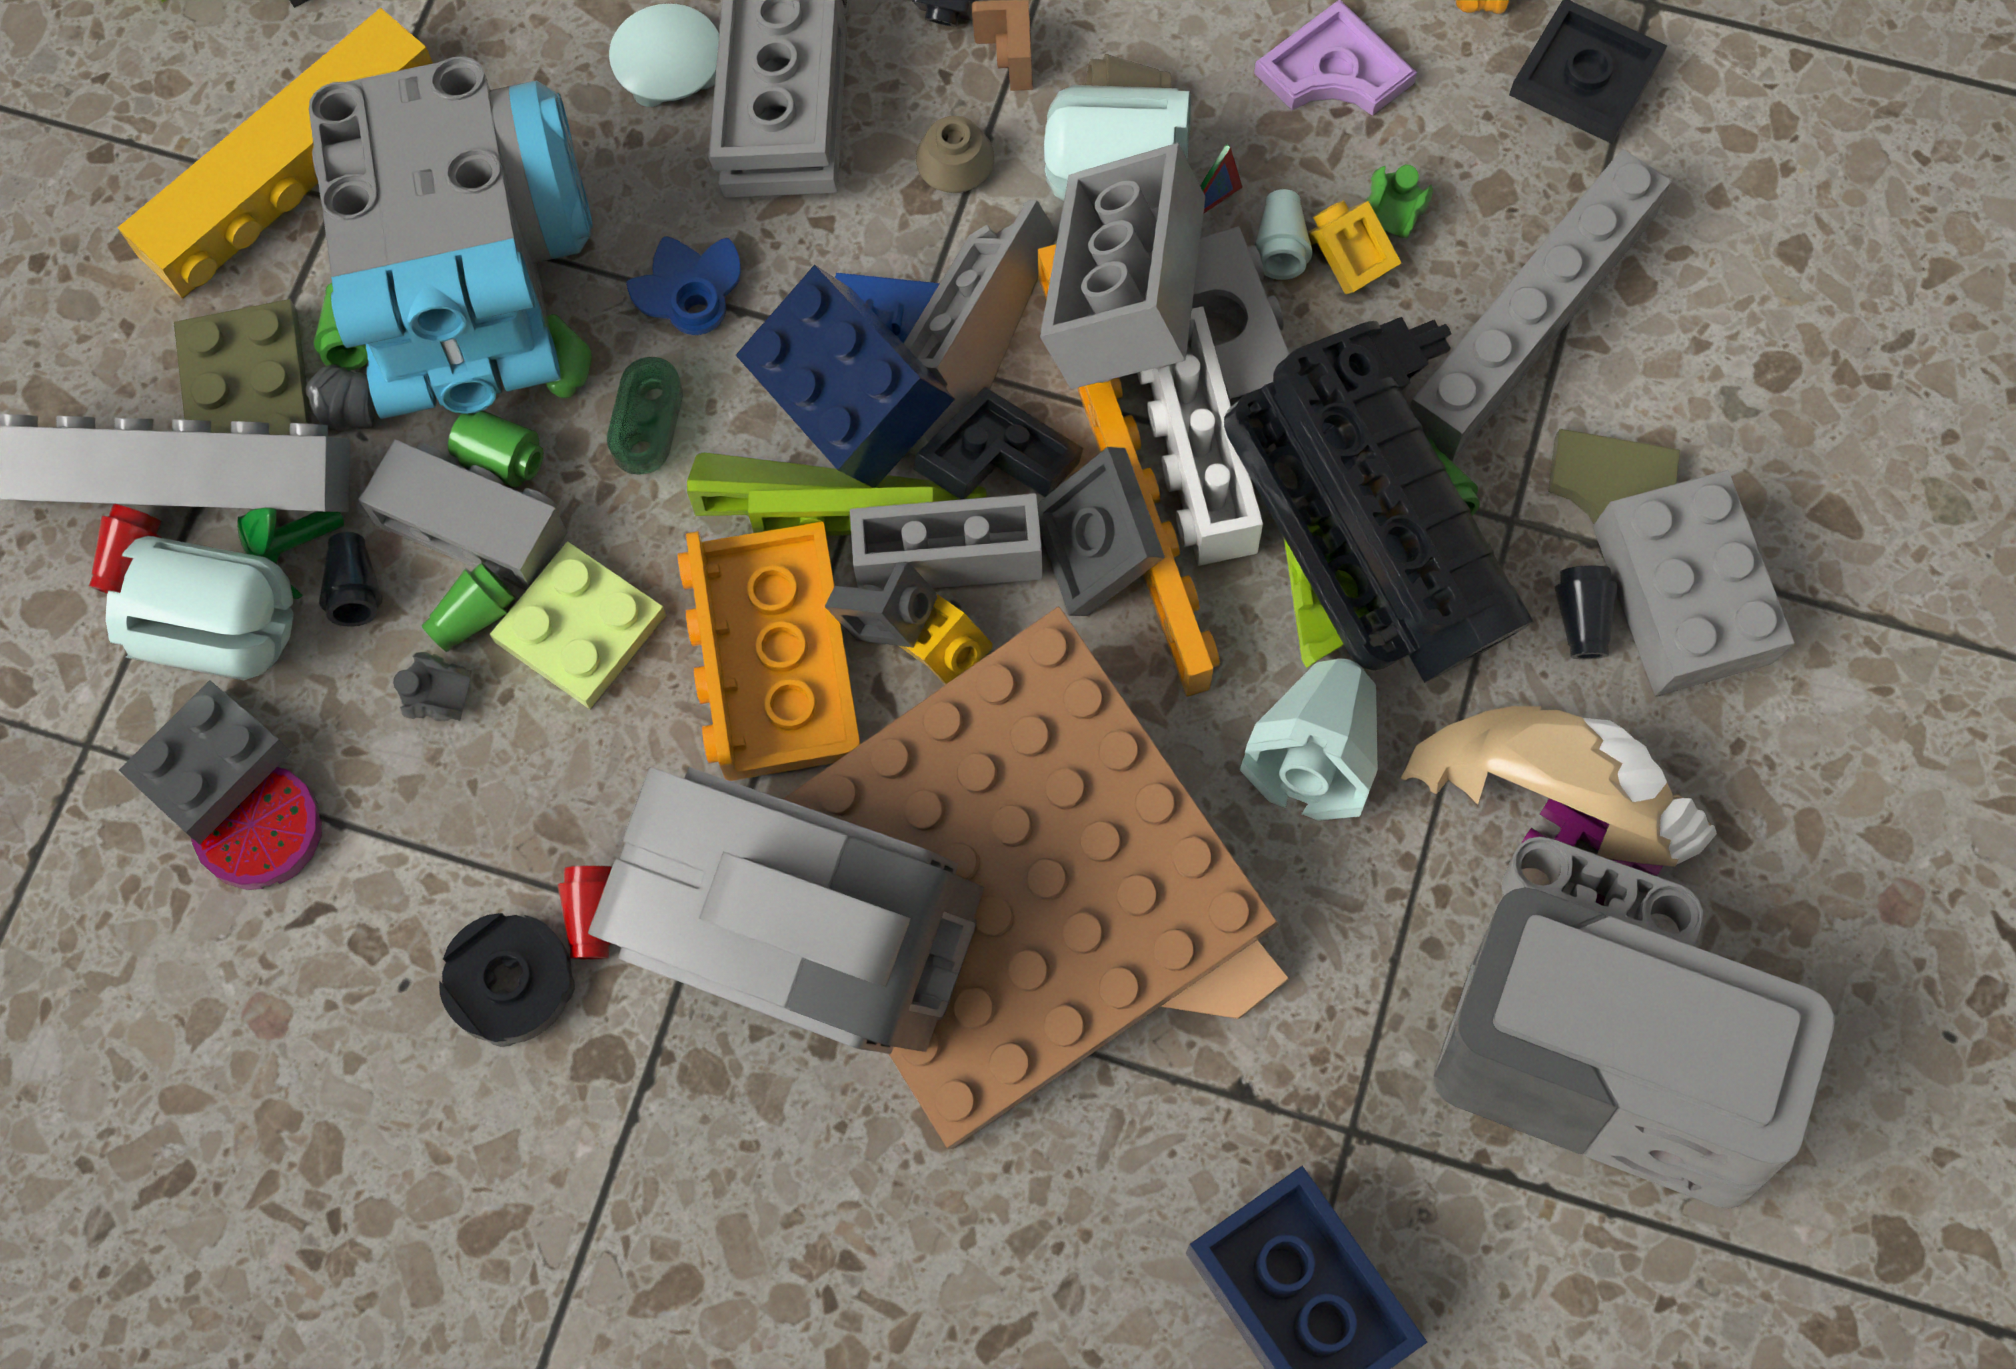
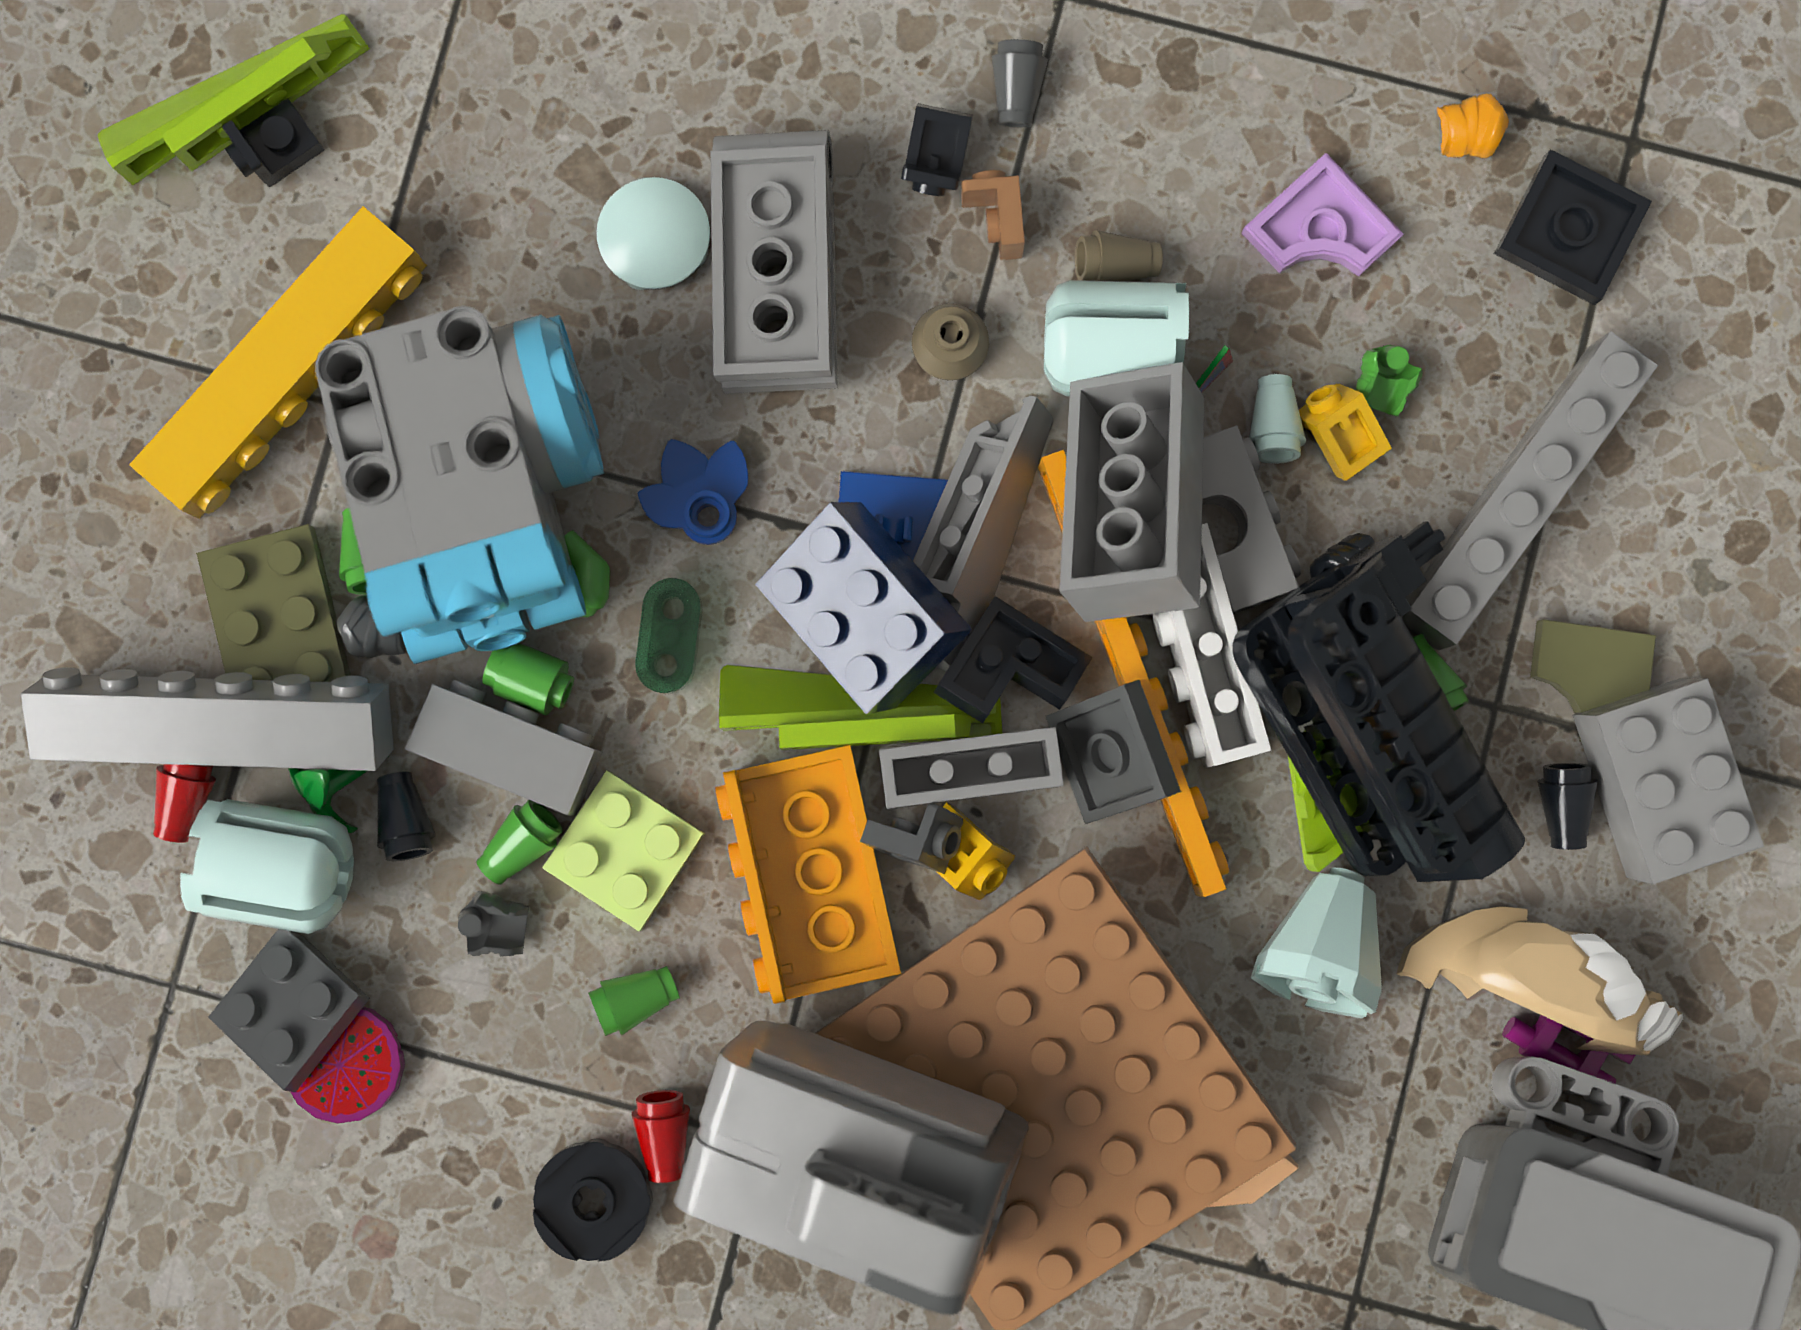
camera: 10 degrees left, 15 degrees up
(571, 769) = (632, 999): none -> bright green cone

